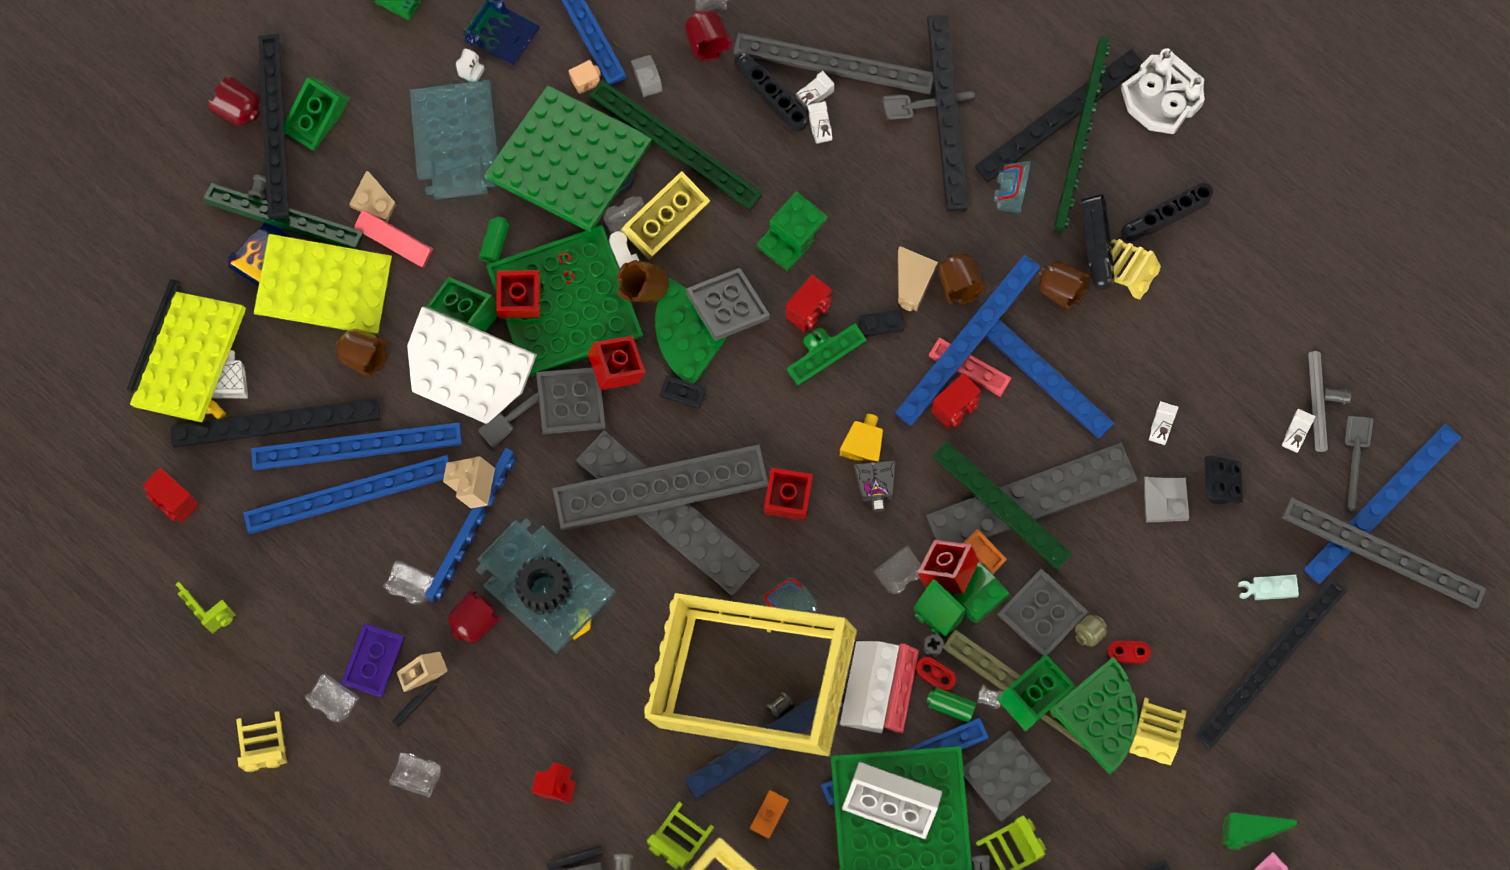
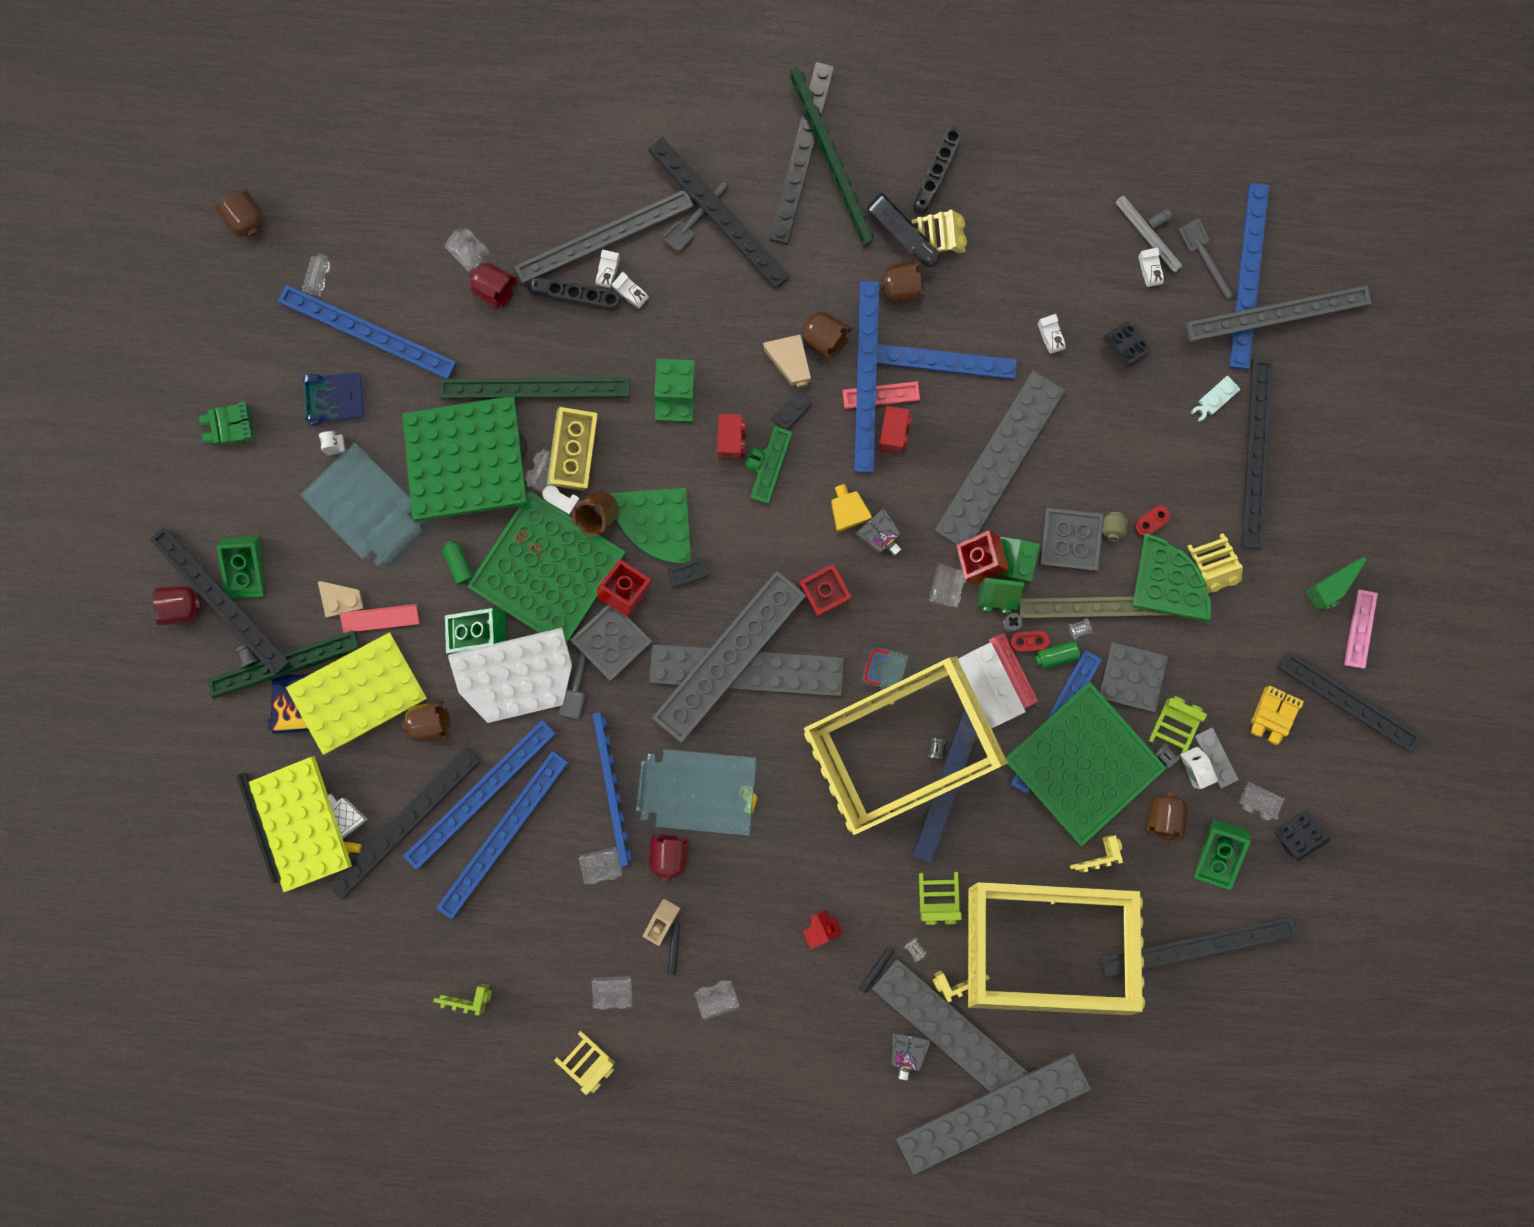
camera: 35 degrees left, 10 degrees up
(167, 492) = (372, 937): red brick -> none
(373, 660) = (619, 941): dark purple plate -> none
(471, 480) = (588, 756): tan brick -> none
(519, 294) = (511, 591): red brick -> none
(533, 572) = (686, 790): black tyre -> none
(585, 76) = (425, 385): light nougat brick -> none
(647, 75) = (471, 349): light grey slope -> none
(727, 304) = (670, 482): dark grey plate -> none
(769, 814) = (989, 832): orange plate -> none
(892, 800) = (1072, 758): white slope -> none
(986, 552) = (999, 525): orange plate -> none
(1002, 505) = (984, 482): dark green plate -> none
(1013, 187) = (811, 235): clear light blue slope -> none
(1035, 692) = (1112, 602): green slope -> none
(1153, 105) = (865, 95): white brick -> none
(1165, 499) = (1095, 389): light grey plate -> none

